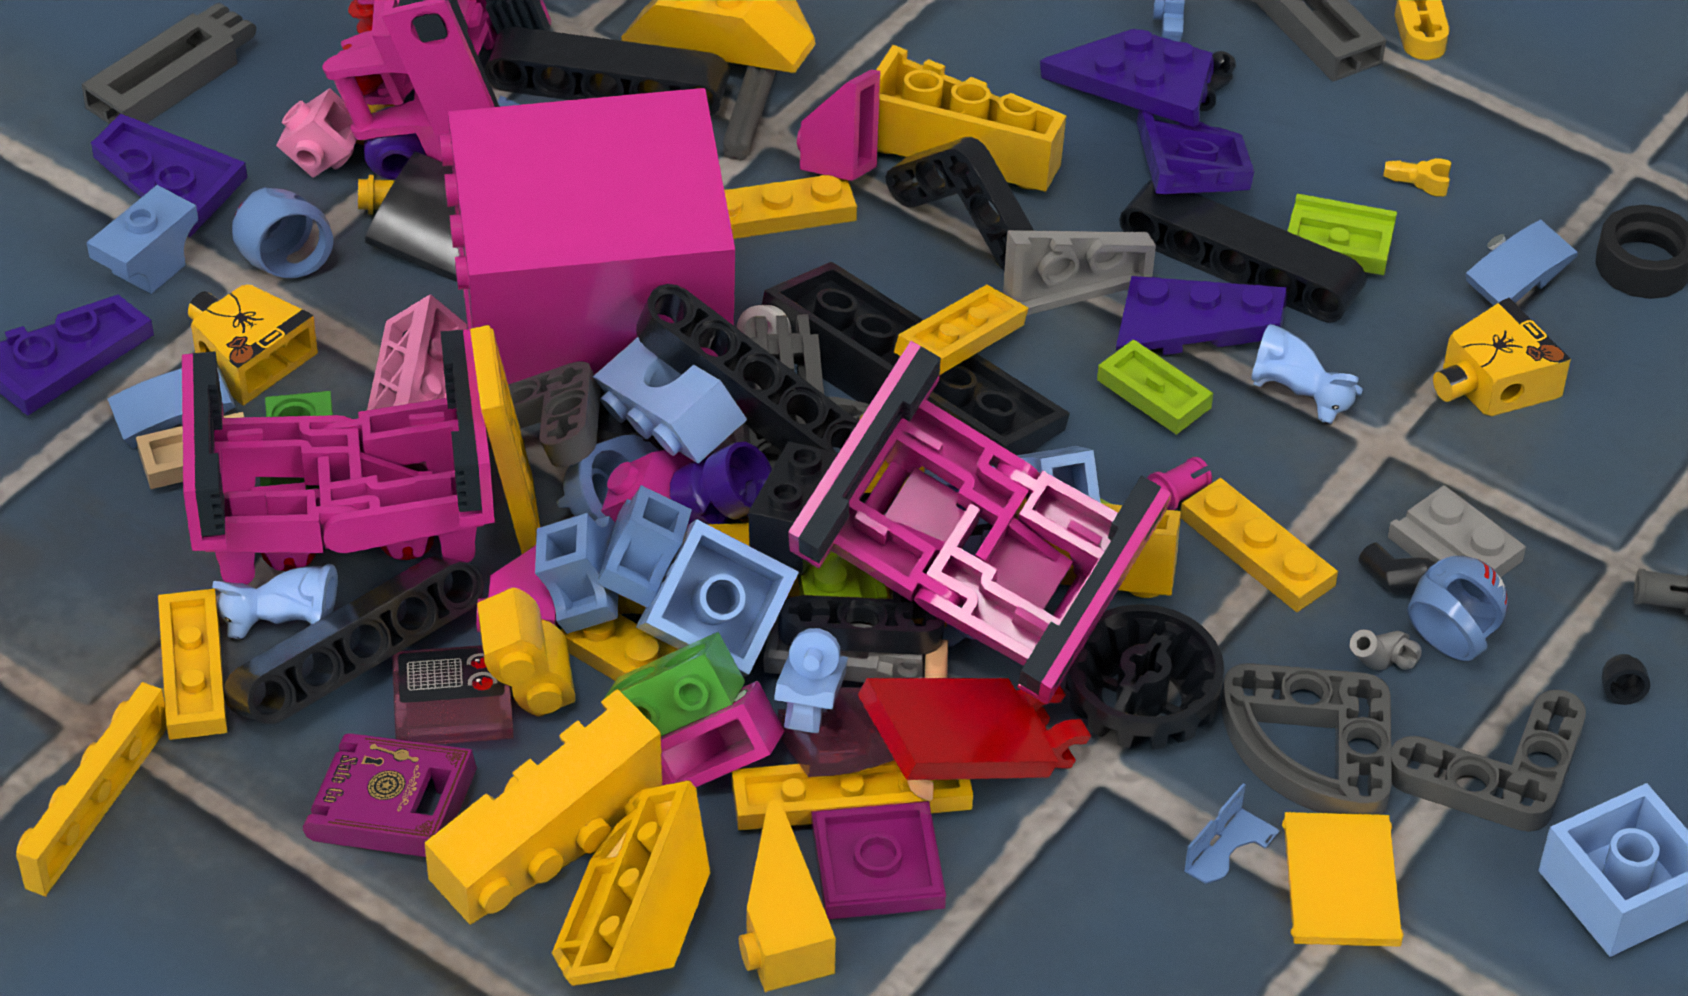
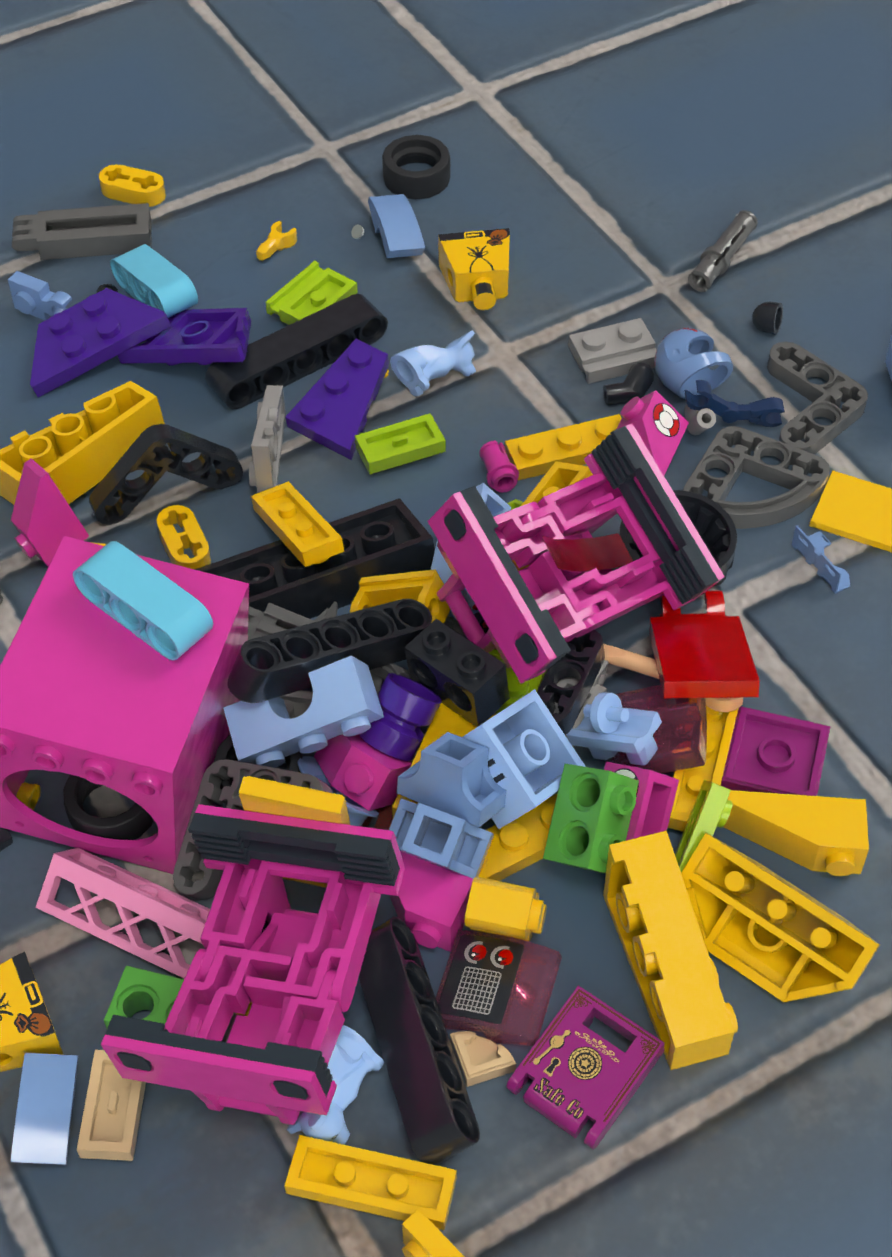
camera: 65 degrees left, 5 degrees up
(368, 709) = (480, 1057): none -> tan tile
(645, 167) = (143, 600): none -> medium azure beam
(734, 789) = (708, 812): none -> lime plate
(907, 265) = (176, 542): none -> yellow beam
(998, 541) = (588, 553): none -> dark red sticker
(1260, 90) = (154, 280): none -> medium azure beam
(1302, 600) = (657, 424): none -> dark pink slope
(1440, 712) = (762, 412): none -> dark blue piece

